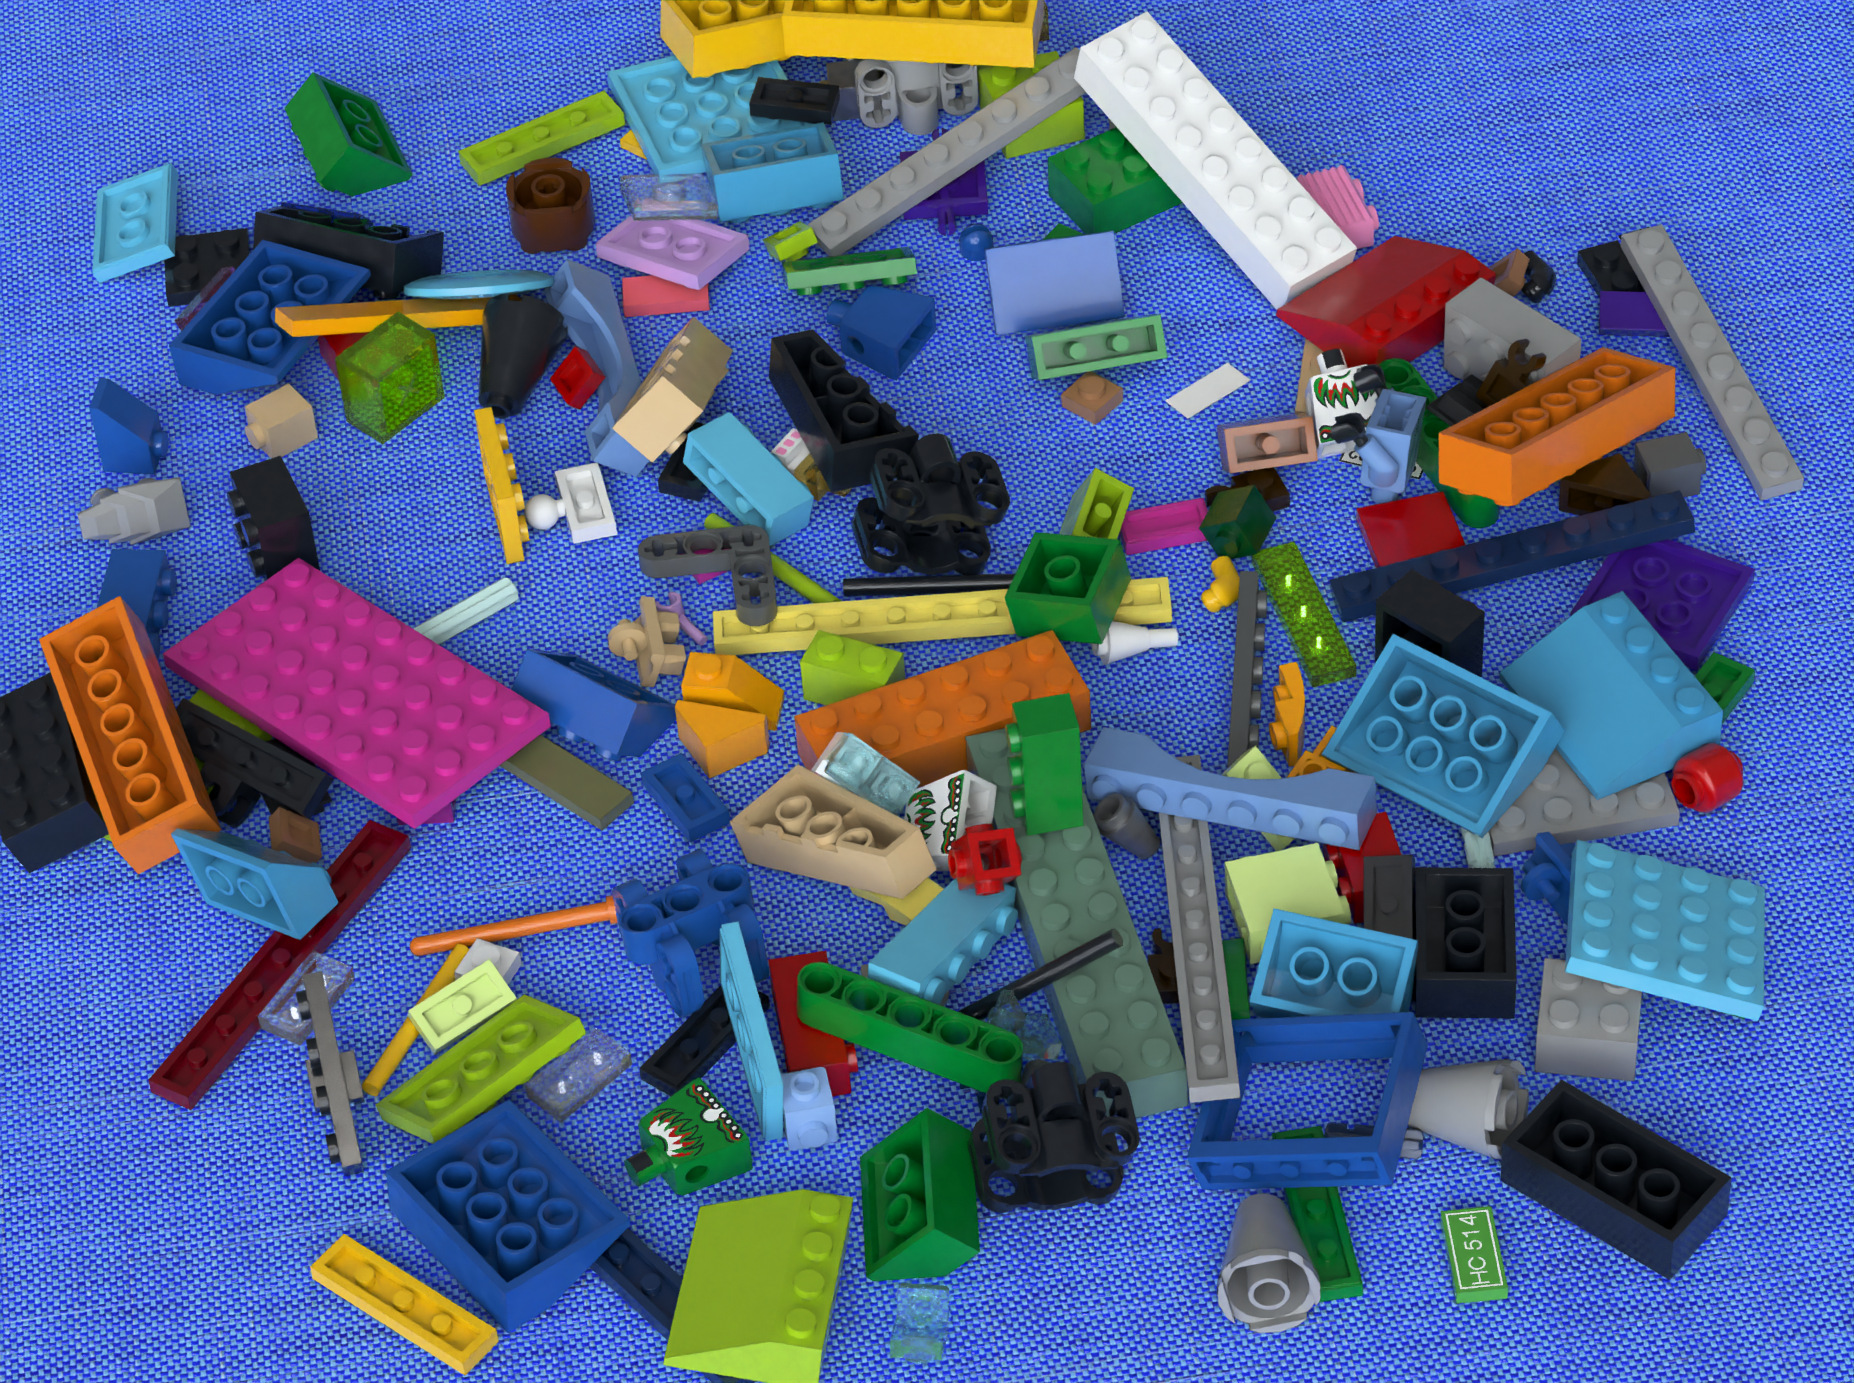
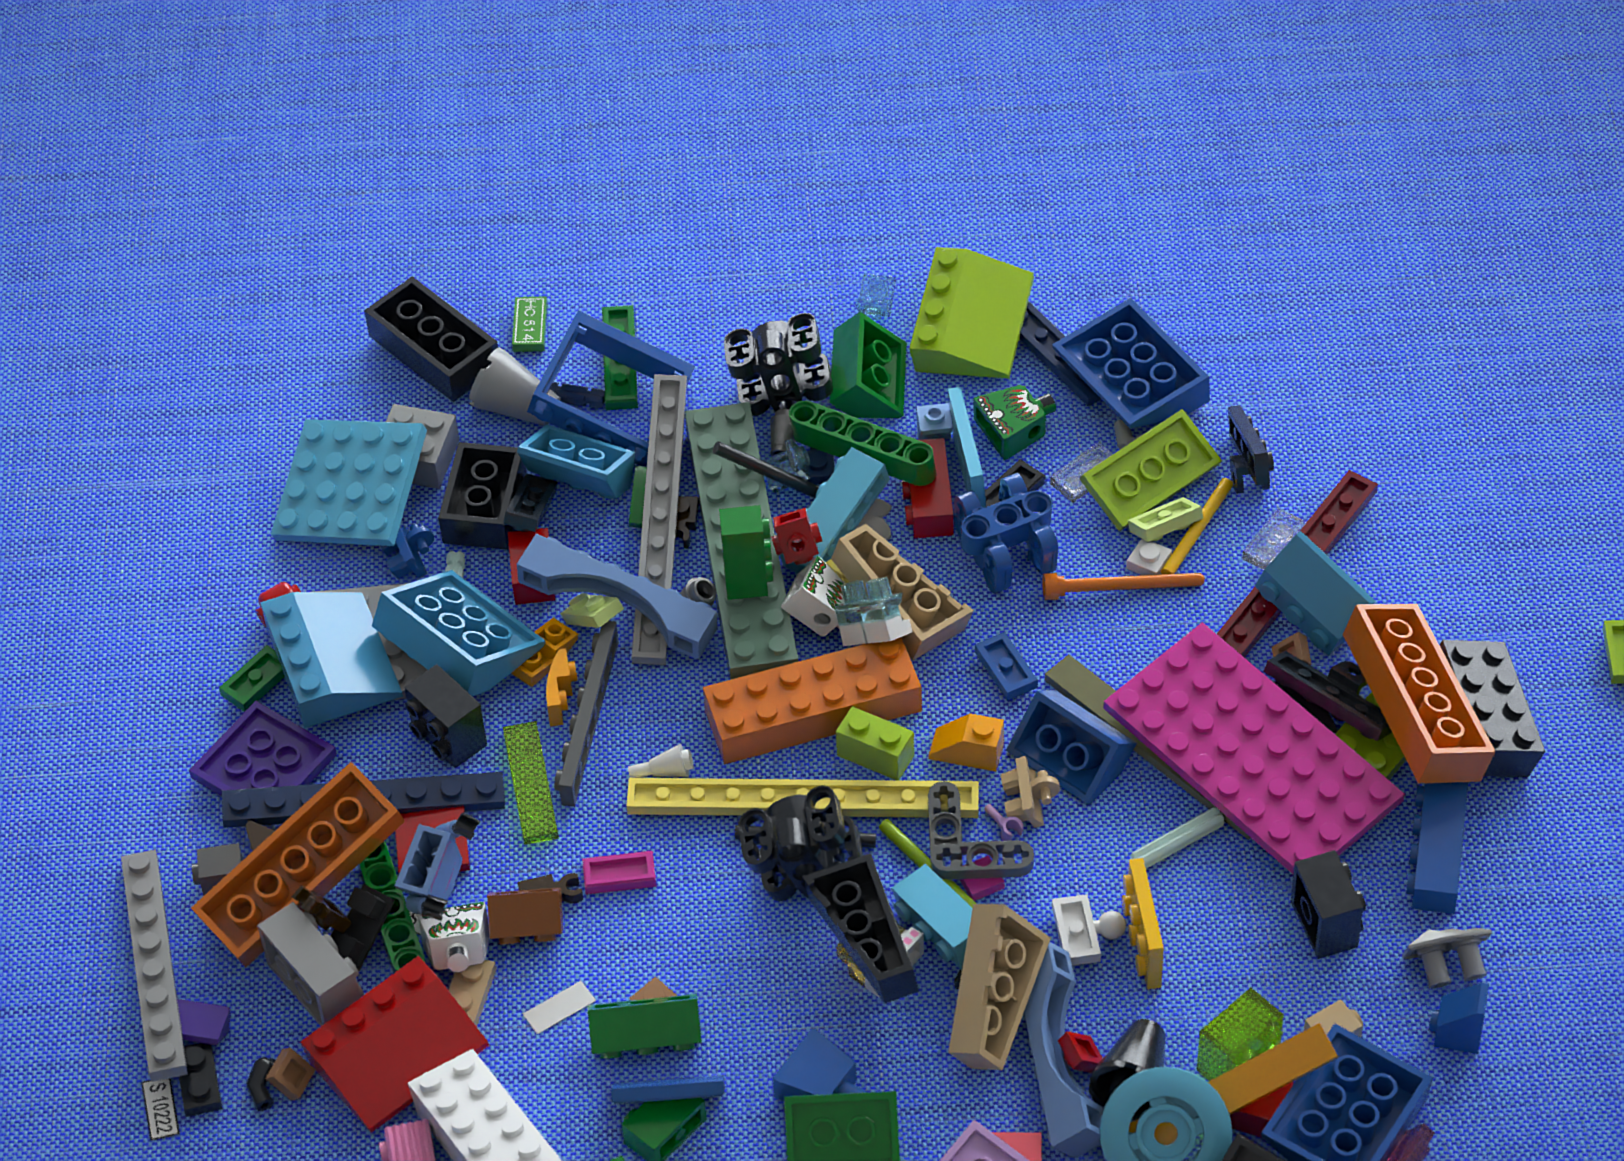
camera: 175 degrees left, 5 degrees up
(404, 1304) = (1201, 340): yellow plate -> none
(720, 735) = (978, 699): light orange slope -> none
(1068, 587) = (704, 759): green brick -> none
(1097, 507) = (676, 848): lime brick -> none
(1224, 588) = (588, 798): yellow arm -> none
(1238, 522) = (564, 844): dark green brick -> none
(1266, 1268) = (659, 303): light grey cone -> none
(1283, 880) = (598, 529): yellowish green brick -> none

